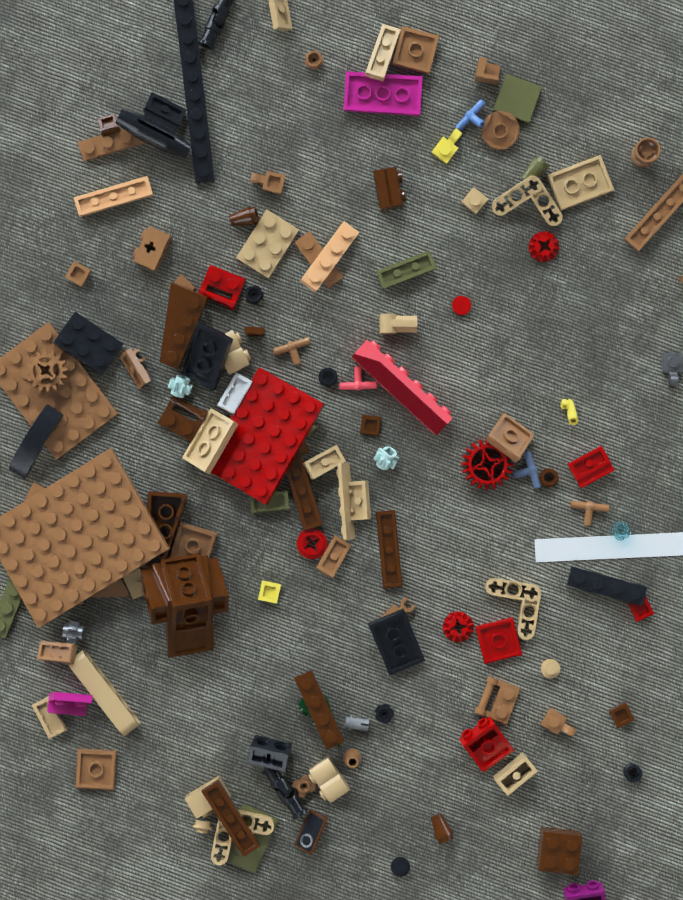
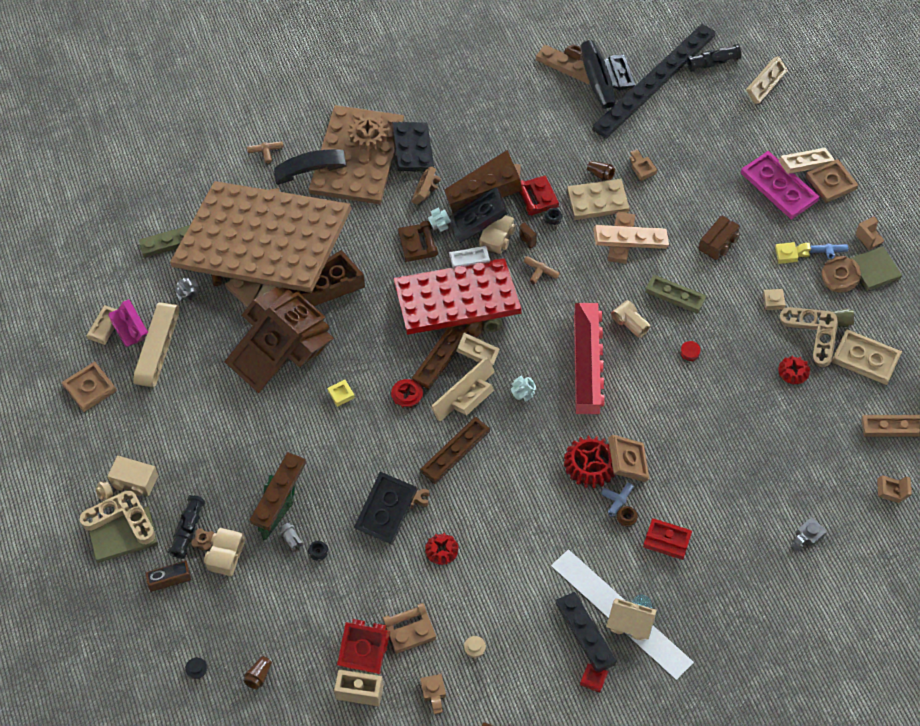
camera: 50 degrees right, 30 degrees down
(57, 652) = (161, 290): medium nougat plate -> none
(78, 274) = (455, 107): medium nougat plate -> none
(113, 196) = (530, 88): light nougat plate -> none
(153, 259) = (519, 134): medium nougat brick -> none
(192, 540) = (335, 313): medium nougat plate -> none
(210, 441) = (418, 265): tan plate -> none
(230, 818) = (129, 496): reddish brown plate -> none
(269, 753) = (209, 488): black brick -> none
(278, 502) = (412, 343): olive plate -> none
(313, 55) = (753, 129): medium nougat plate -> none
(328, 377) = (543, 306): black plate -> none
(333, 556) = (411, 412): medium nougat plate -> none
(352, 753) = (258, 555): medium nougat cone -> none
(358, 385) = (560, 330): coral piece -> none
(370, 425) = (537, 362): reddish brown tile -> none
(498, 640) = (459, 588): red tile -> none
(525, 602) = (511, 582): tan beam -> none
(571, 411) = (696, 488): light yellow arm -> none
(589, 507) = (635, 566): medium nougat piece -> none
(628, 549) = (631, 619): none -> tan brick

